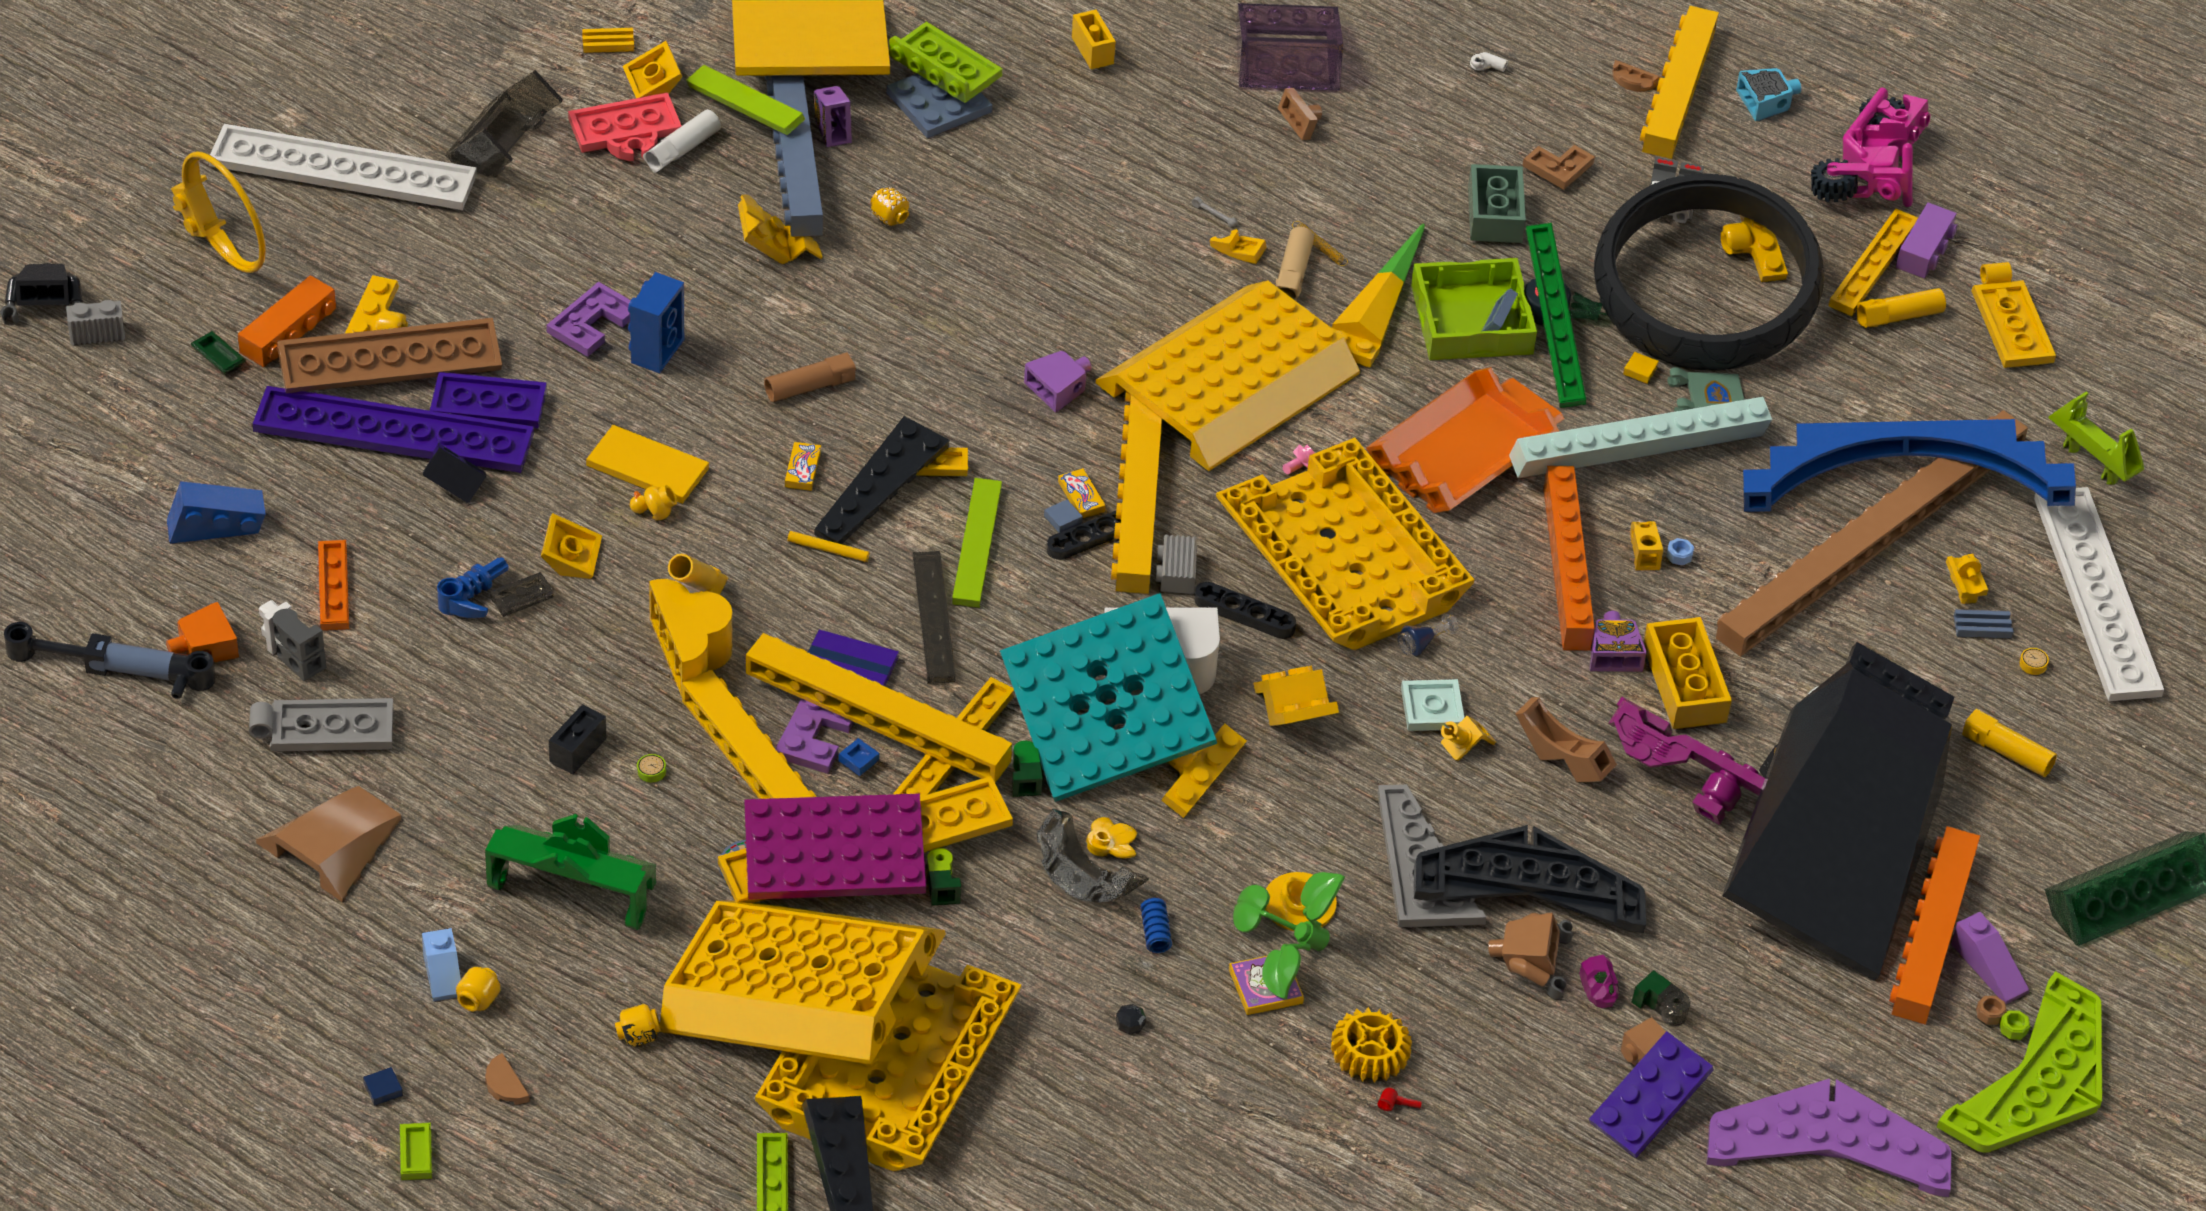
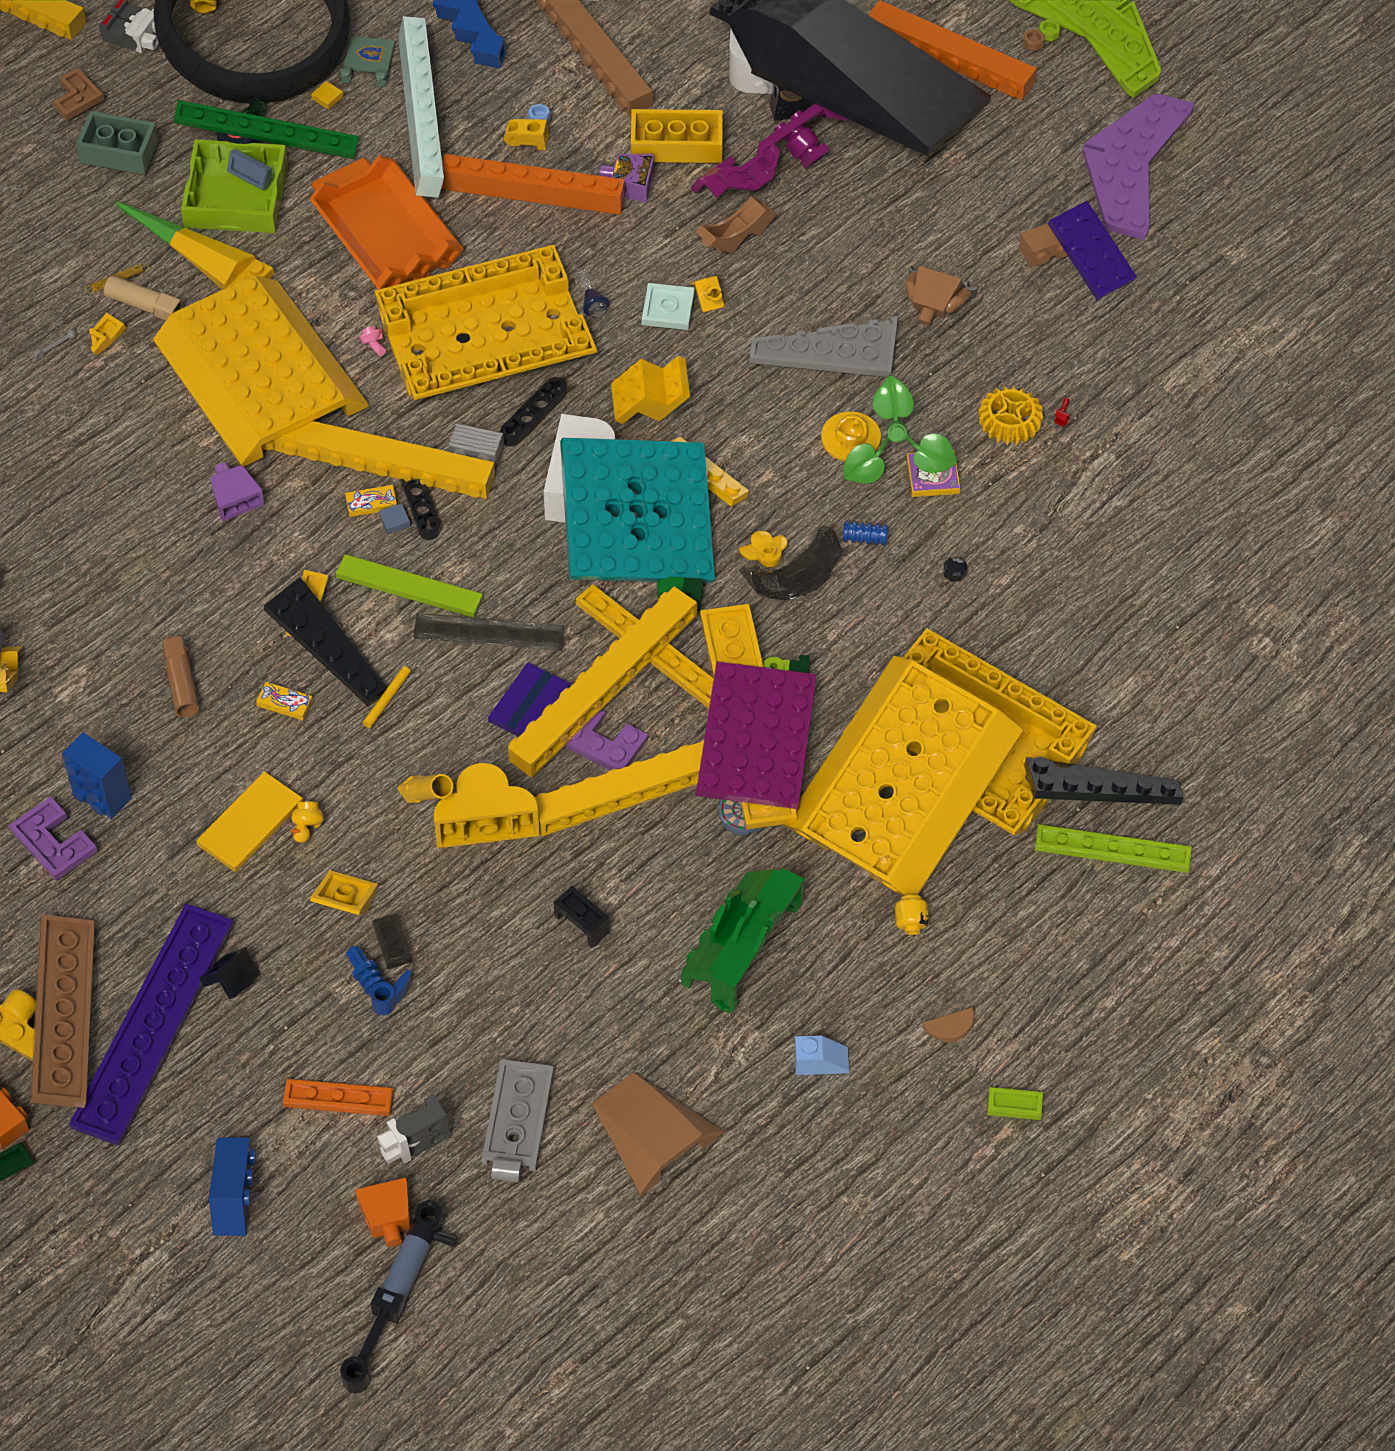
camera: 75 degrees left, 10 degrees up
(382, 1086) = (941, 1120): dark blue tile -> none
(477, 989) = (854, 1030): yellow head -> none
(490, 398) = (136, 938): dark purple plate -> none
(651, 768) = (618, 869): tile -> none
(859, 757) = (642, 710): blue plate -> none
(1545, 869) = (854, 274): black wing -> none
(1599, 981) = (970, 262): magenta rock -> none
(1663, 998) = (993, 226): leg -> none
(1989, 957) = (987, 26): medium lavender slope -> none

